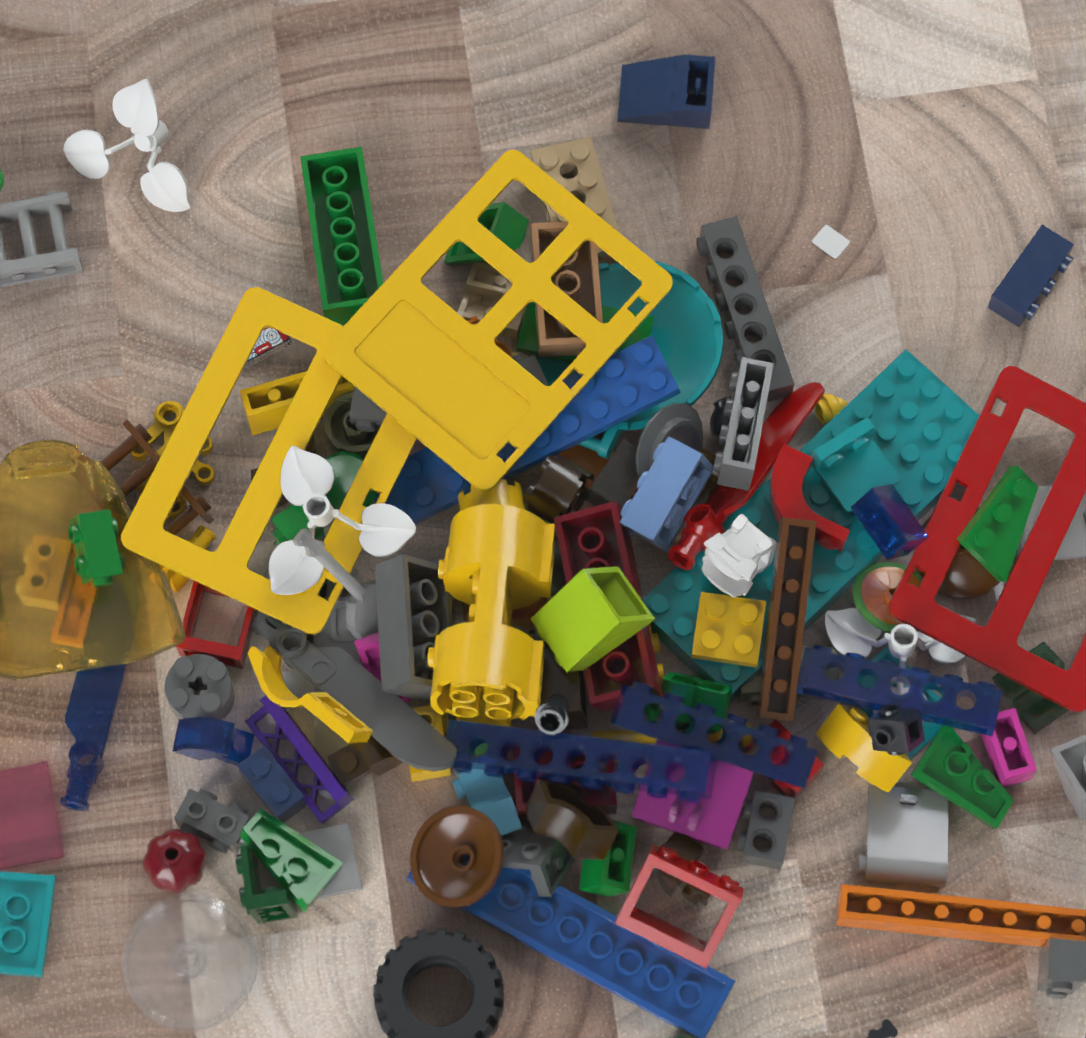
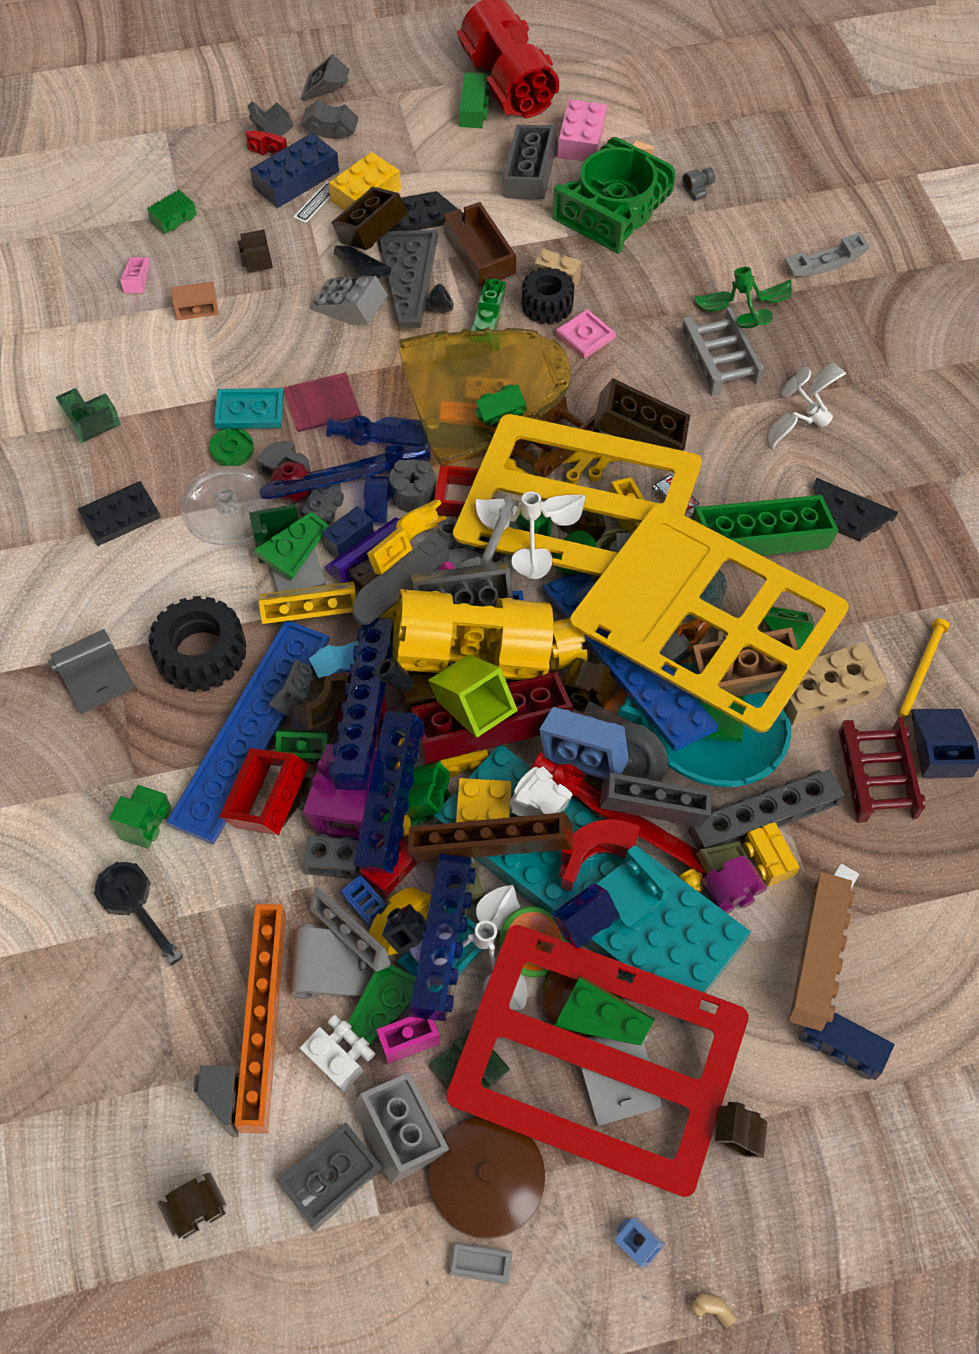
camera: 85 degrees right, 10 degrees down
(82, 954) = (231, 447): none -> green tile
(119, 876) = (276, 454): none -> dark grey brick
(144, 363) = (640, 417): none -> dark brown brick
(176, 781) = (347, 472): none -> clear blue piece
(313, 127) = (852, 513): none -> black wing
(385, 843) = (307, 602): none -> yellow brick
(440, 855) = (294, 638): reddish brown dish -> none
(504, 62) = (939, 627): none -> yellow bar
(705, 200) = (861, 782): none -> dark red fence
(803, 313) = (771, 854): none -> yellow brick
(805, 368) = (714, 857): none -> olive tile
(811, 806) = (355, 886): none -> blue slope
(844, 358) = (734, 884): none -> magenta brick
(875, 809) = (349, 931): none -> light grey slope
(931, 277) = (821, 952): none -> medium nougat brick
(1028, 838) = (332, 1058): none -> white brick

